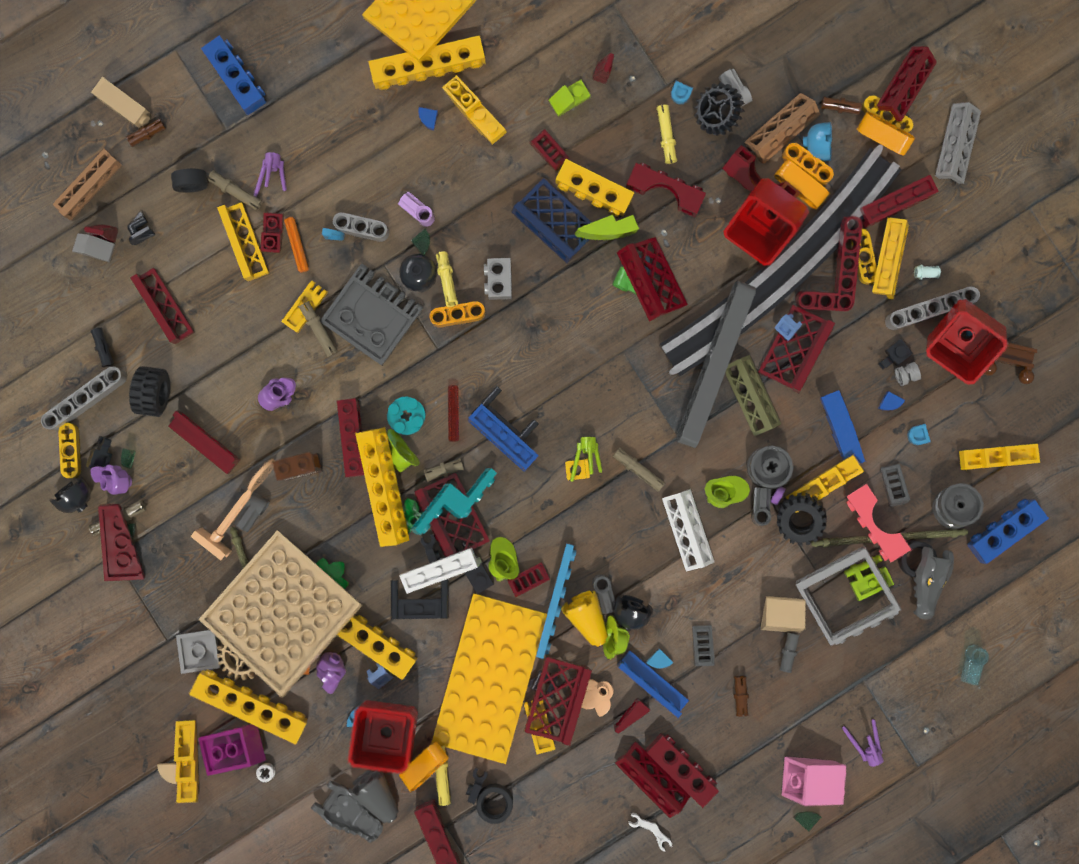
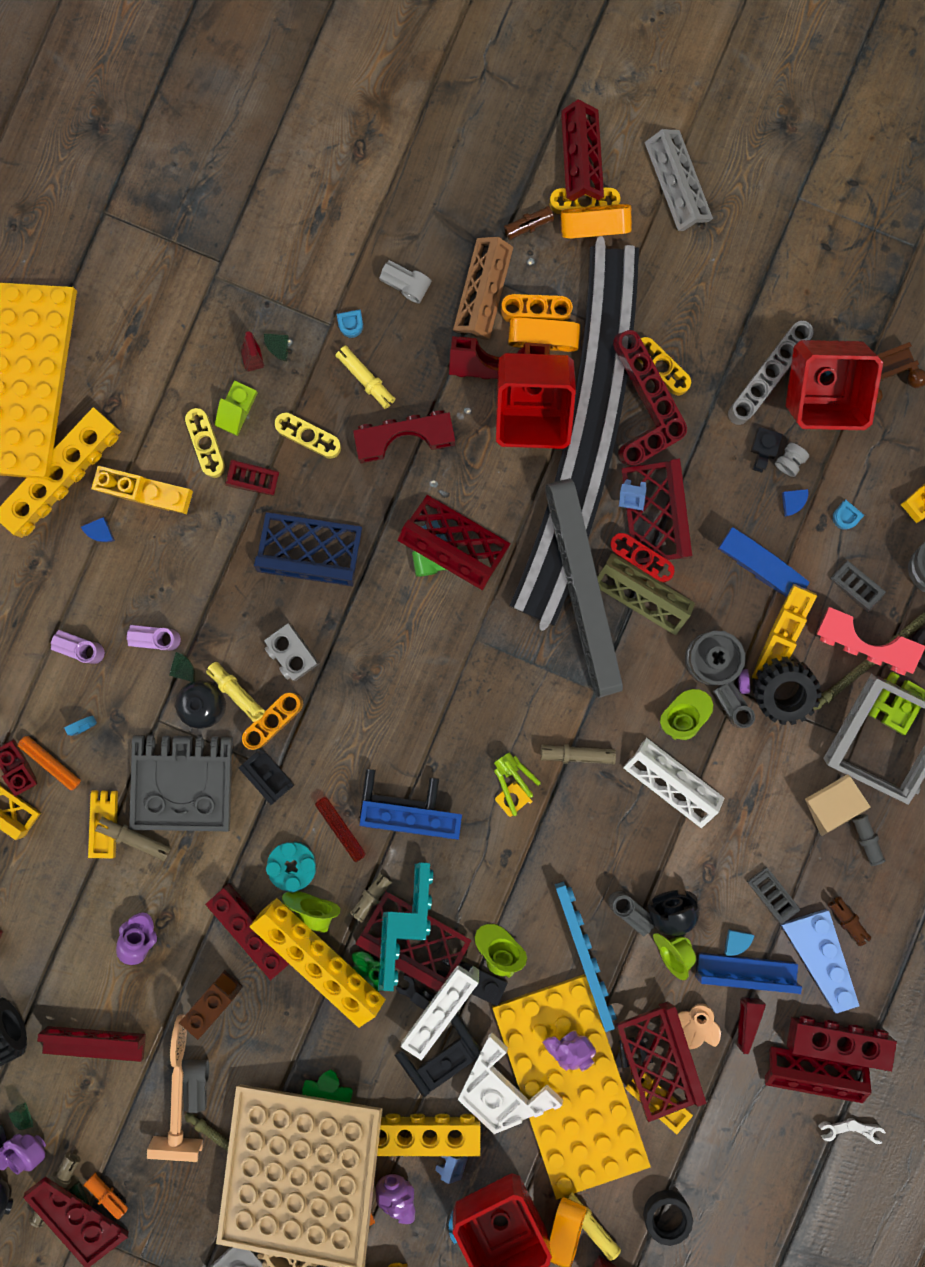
camera: 35 degrees left, 0 degrees up
(147, 544) = (106, 1196): none -> orange axle
(352, 223) = (94, 701): light grey beam -> none
(363, 182) = (76, 647): none -> lavender piece
(429, 347) = (266, 776): none -> black hinge
(436, 652) = (497, 1100): none -> white wing
(474, 789) = (635, 1218): black plate -> none
(506, 653) = (571, 1051): none -> medium lavender head
(516, 591) = (543, 929): dark red slope -> none
(543, 95) = (192, 428): none -> light yellow beam
(571, 170) = (290, 484): yellow brick -> none
(587, 617) = (630, 951): yellow cone -> none
(602, 132) = (288, 433): none -> light yellow beam
(608, 228) = (371, 520): lime slope -> none
(624, 75) = (277, 345): none -> clear green tile
(708, 706) = (822, 955): none -> light blue wing
(709, 105) = (412, 300): black gear -> none
(777, 382) = (630, 542): none -> red beam
(819, 141) = (531, 276): dark azure cylinder -> none
(890, 257) = (690, 348): yellow fence -> none
(898, 201) = (658, 283): dark red fence -> none
(926, 272) = (734, 340): light aqua pin -> none

